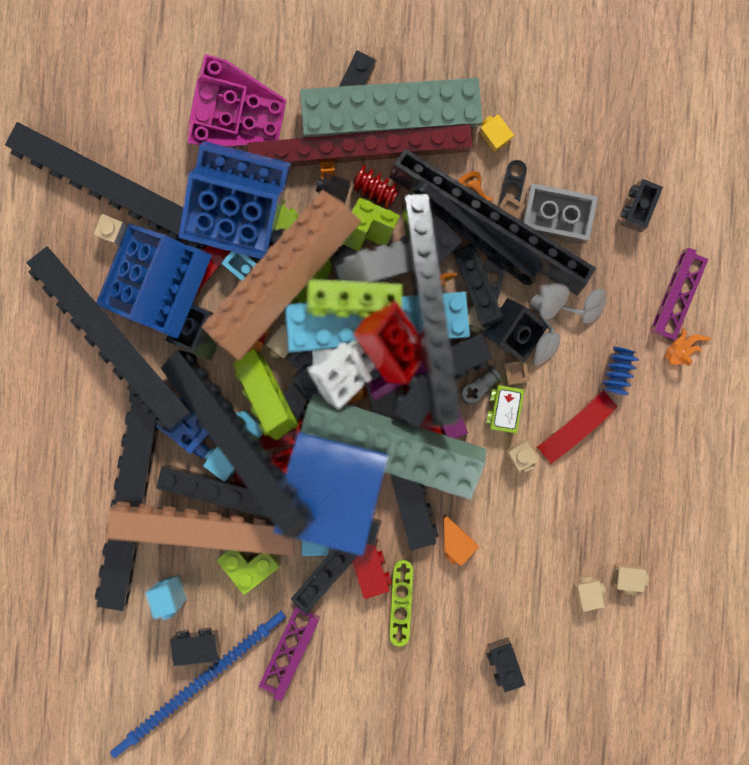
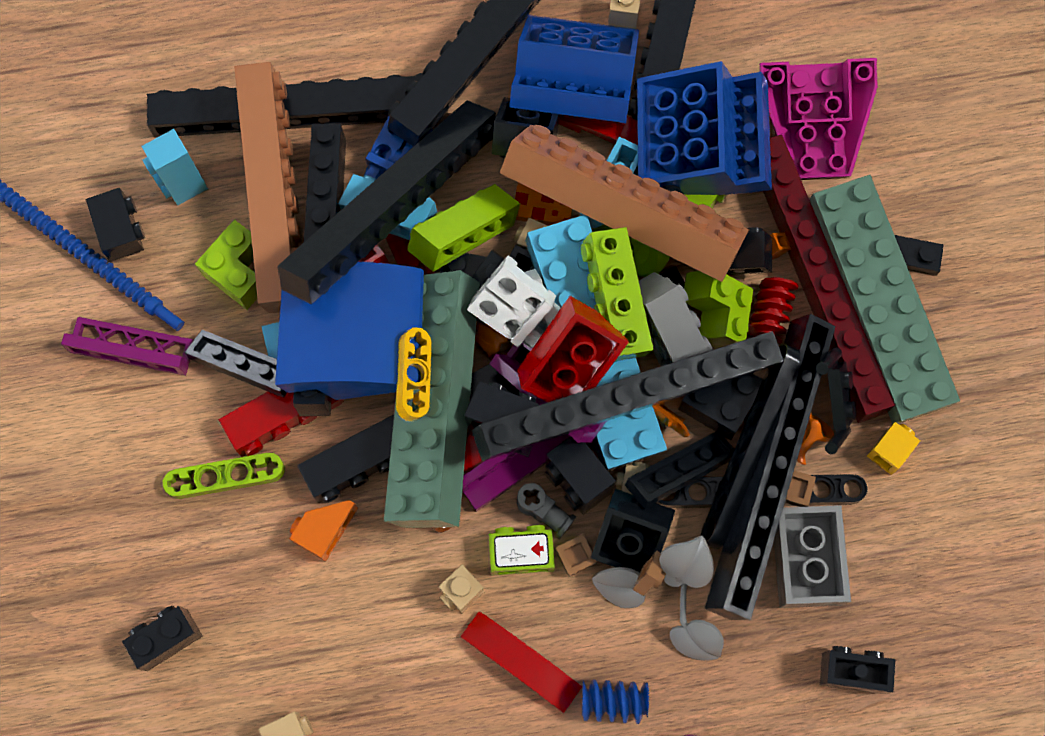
camera: 80 degrees right, 15 degrees down
(387, 451) = (421, 397): none -> yellow beam
(446, 157) = (842, 407): none -> black plate
(550, 327) = (650, 575): none -> medium nougat plate

